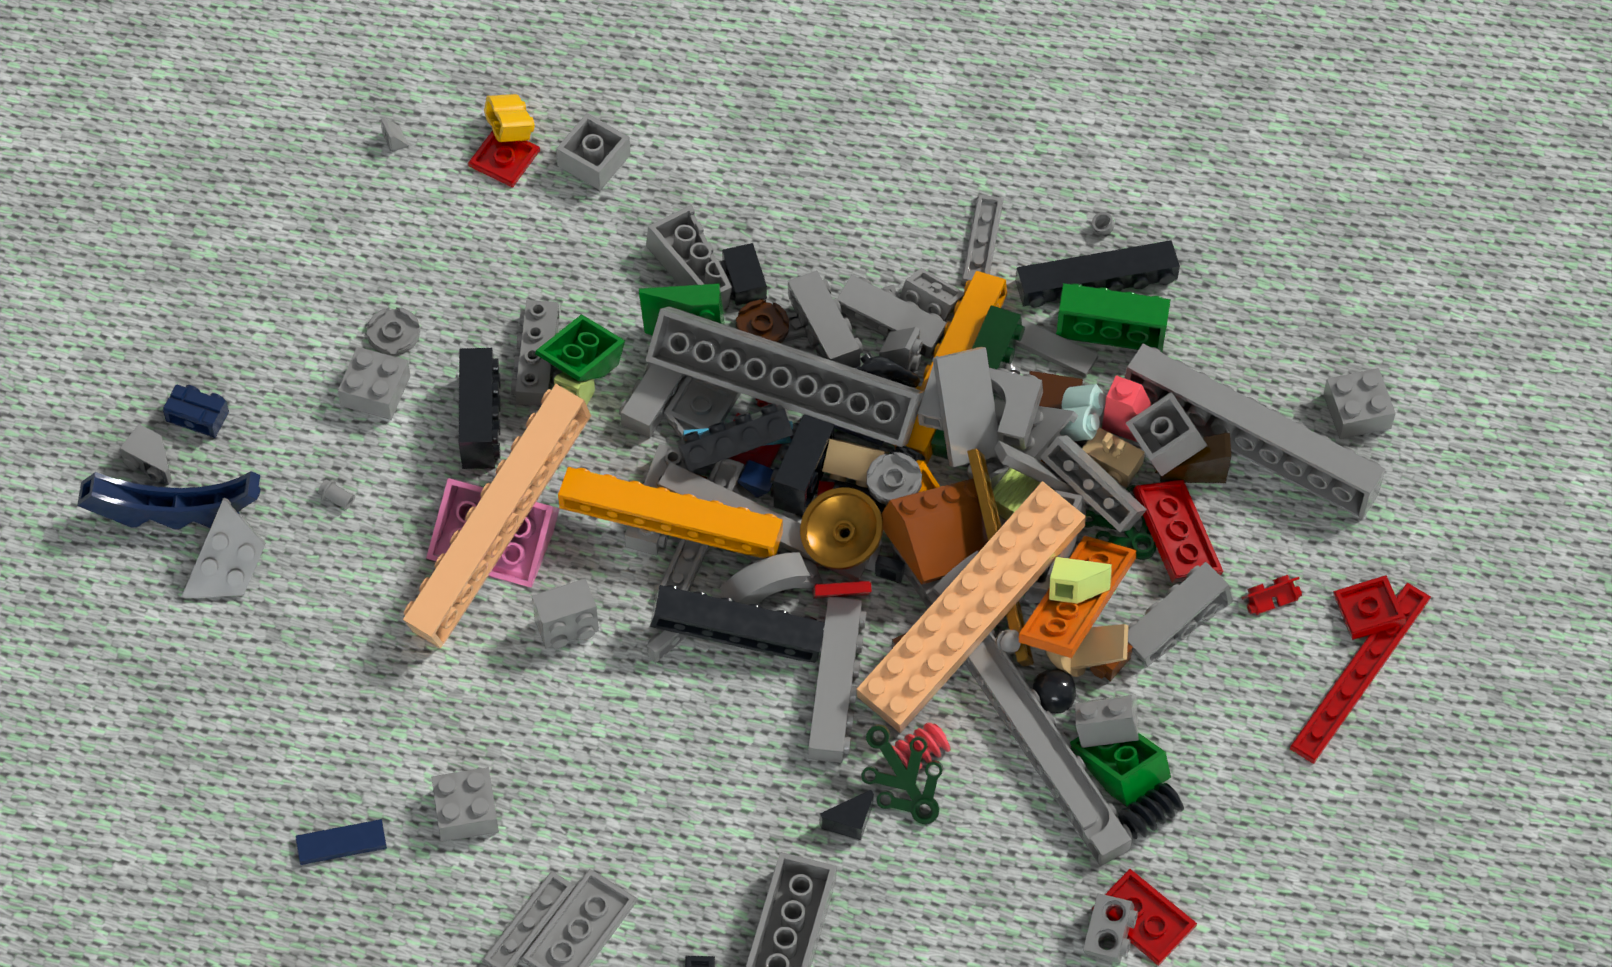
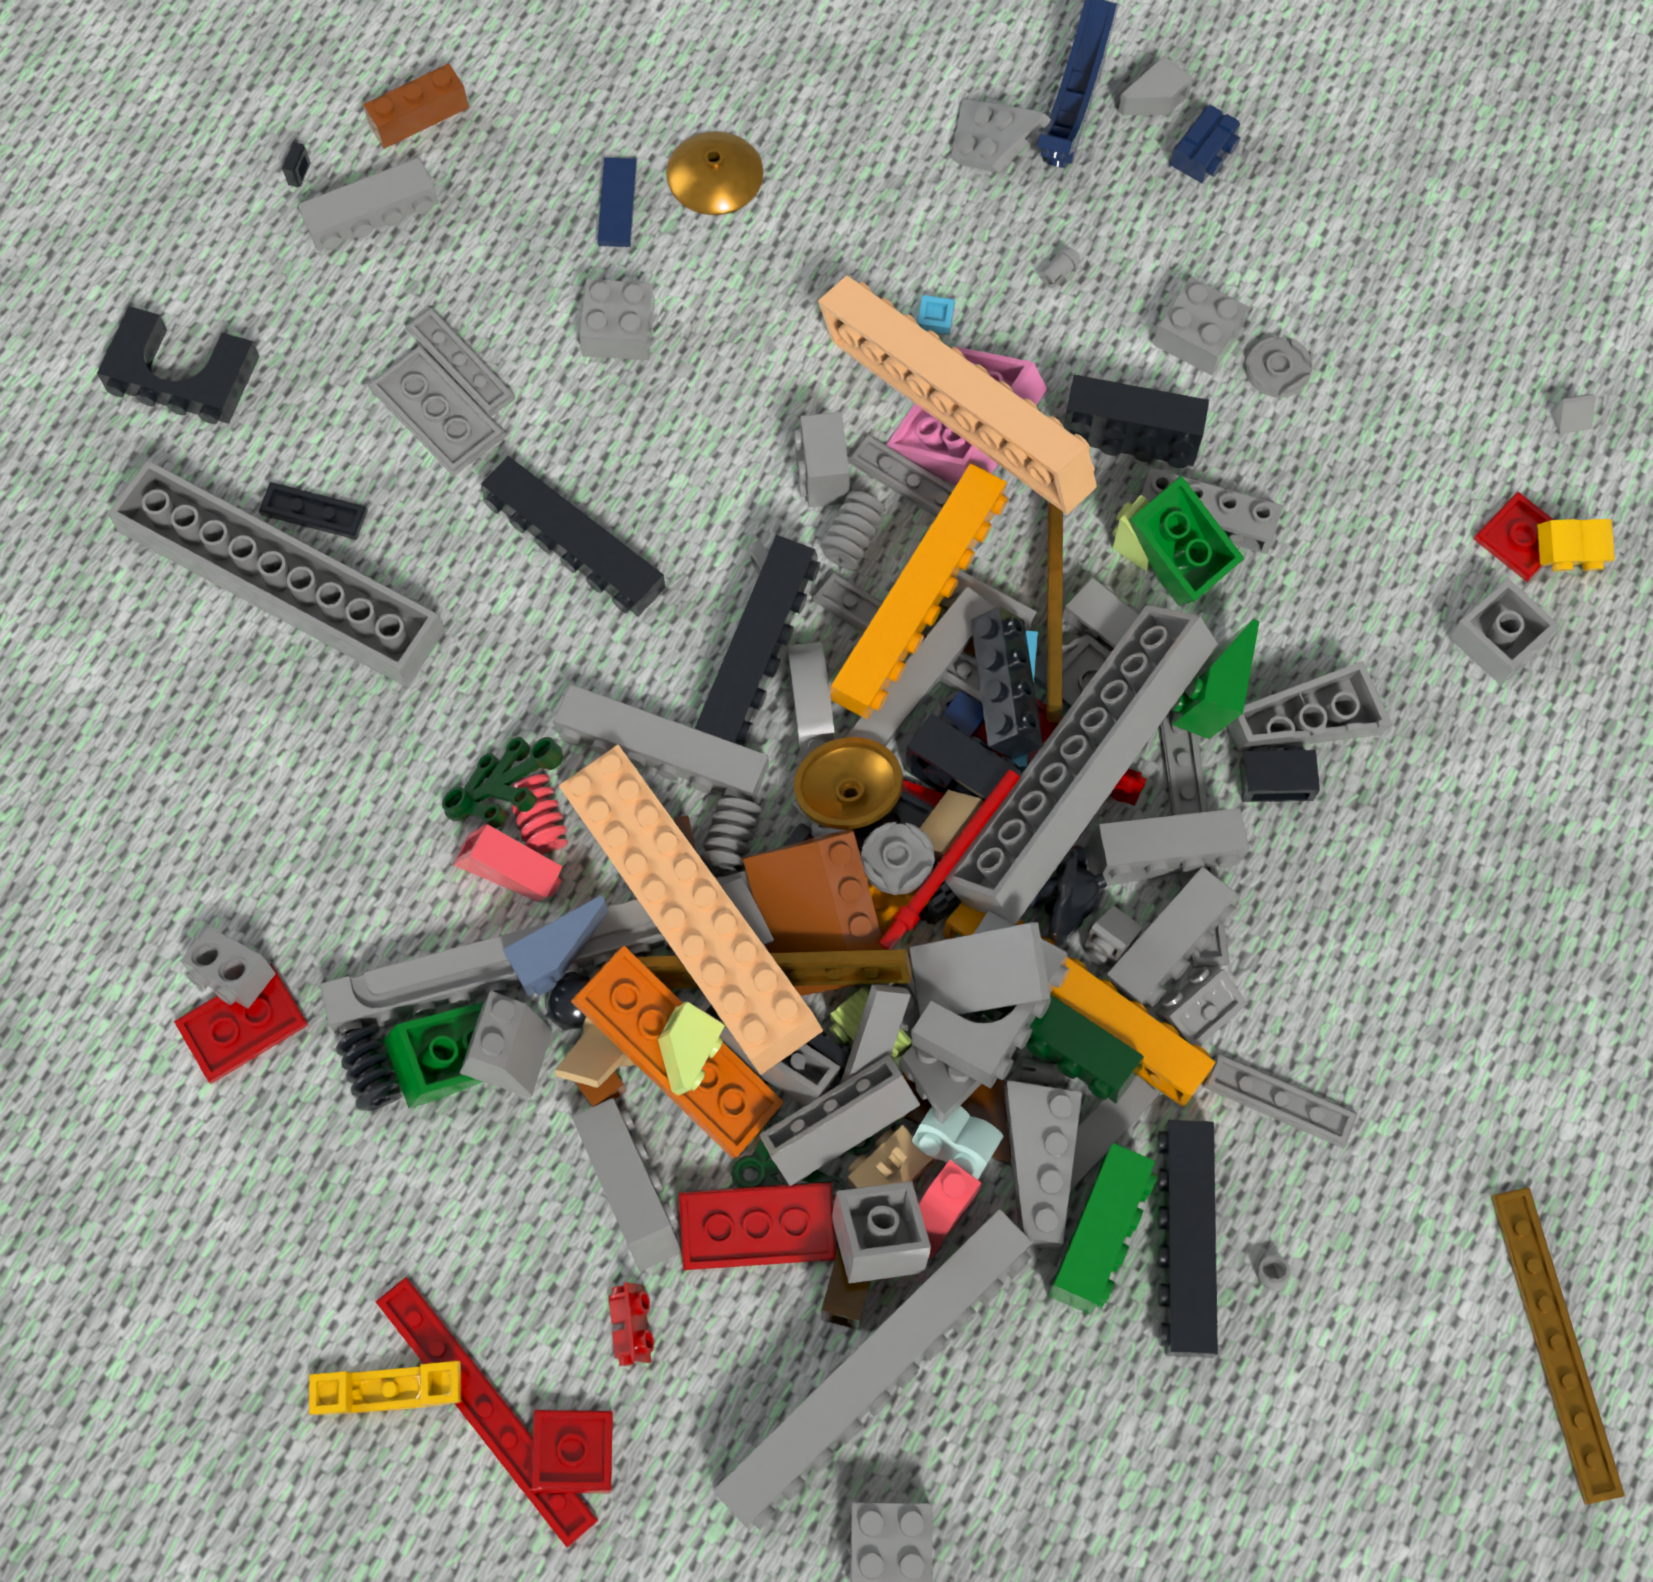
camera: 105 degrees right, 10 degrees up
(296, 788) = (718, 185): none -> pearl gold dish
(402, 573) = (936, 314): none -> medium azure plate
(561, 554) = (901, 475): none -> light grey tile
(618, 588) = (851, 528): none -> light grey piece
(650, 432) = (1054, 613): none -> pearl gold tile
(673, 788) = (573, 536): none -> black brick
(764, 320) = (1195, 779): reddish brown tile -> none
(841, 589) = (772, 773): red tile -> none
(849, 817) = (472, 716): black slope -> none
(895, 613) = (727, 835): none -> light grey piece
(935, 463) = (907, 915): none -> red bar
(964, 761) = (509, 864): none -> coral slope
(1008, 641) = (641, 946): light grey hinge -> none
(1028, 693) = (550, 951): none -> sand blue slope
(1078, 359) = (1042, 1146): none -> light grey wedge
(1092, 68) = (1557, 1347): none -> pearl gold tile
(1369, 731) = (385, 1389): none -> yellow slope

